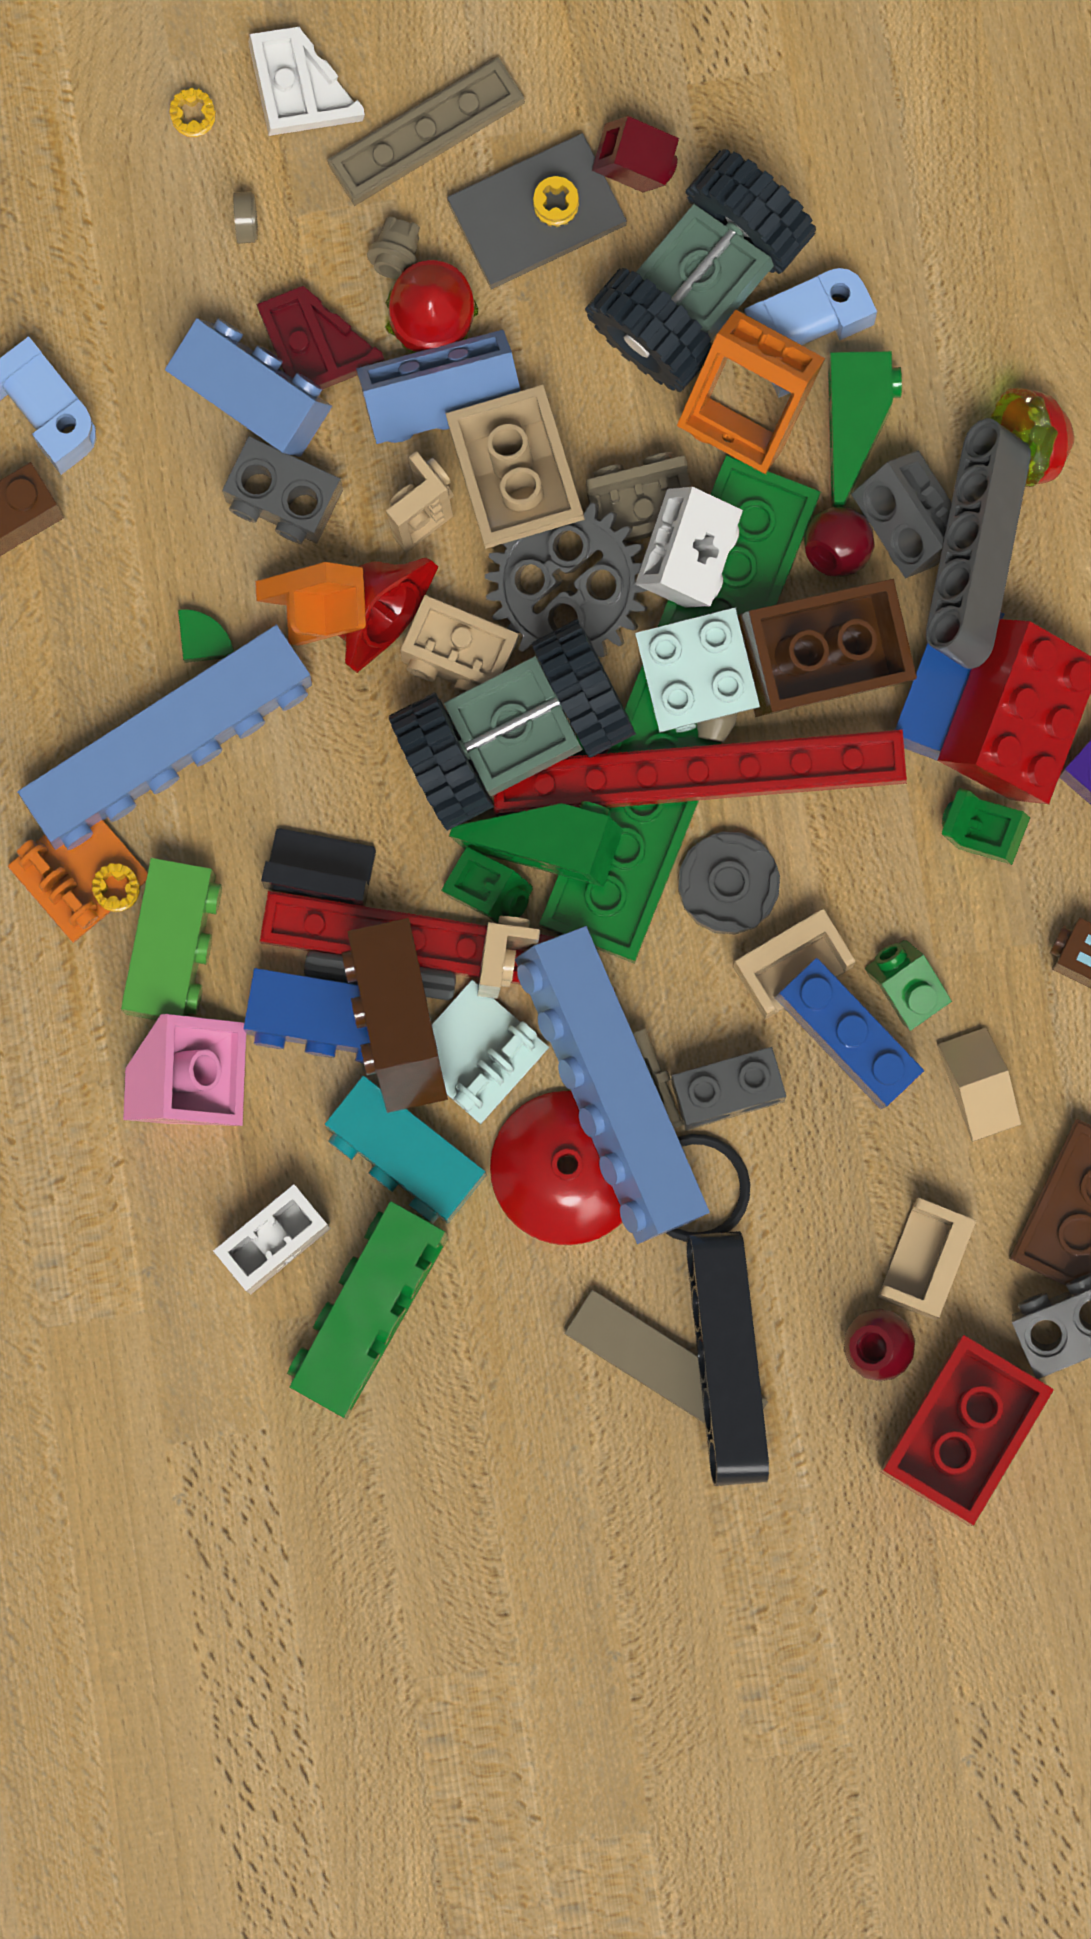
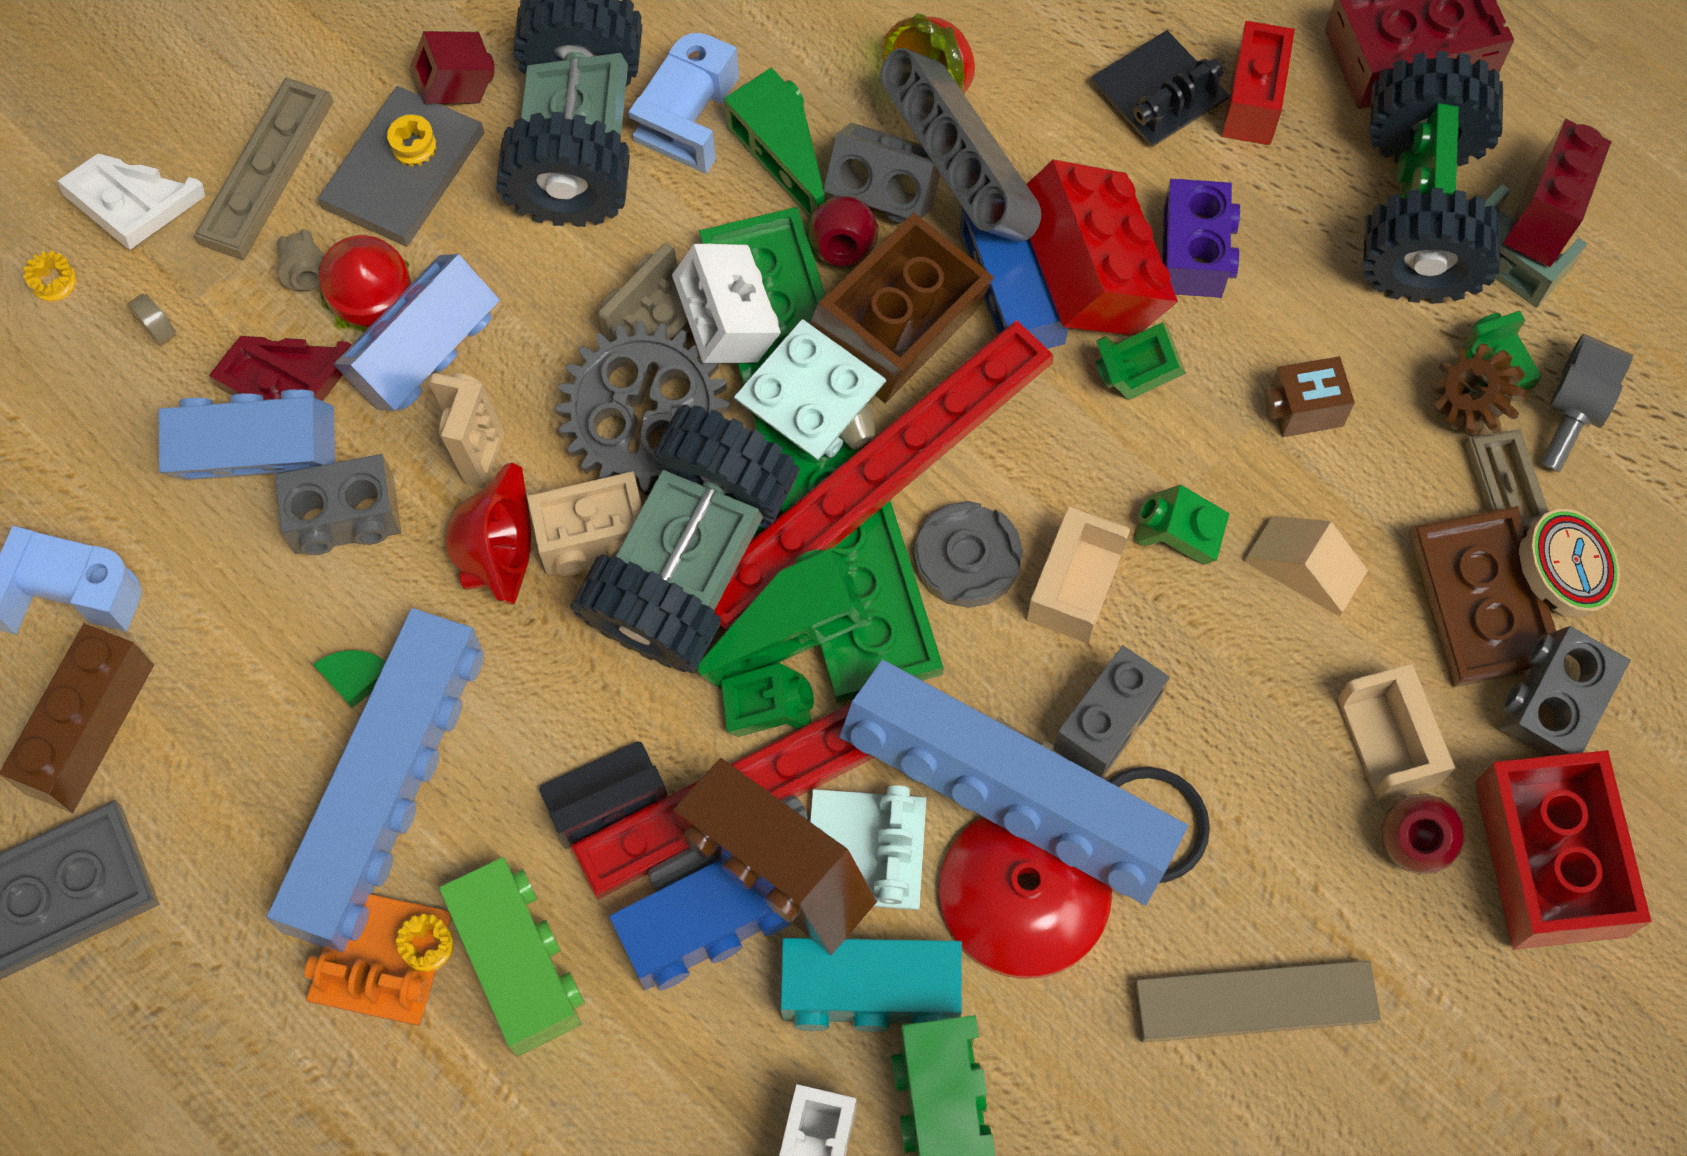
camera: 40 degrees left, 15 degrees down
(188, 1073) = (615, 1064): bright pink slope -> none
(319, 600) = (433, 562): orange panel -> none
(497, 958) = (826, 735): tan bracket -> none
(514, 466) = (526, 340): tan slope -> none
(727, 1359) = (1312, 948): black beam -> none
(768, 356) = (674, 112): orange window -> none
(849, 1034) = (1174, 594): blue brick -> none

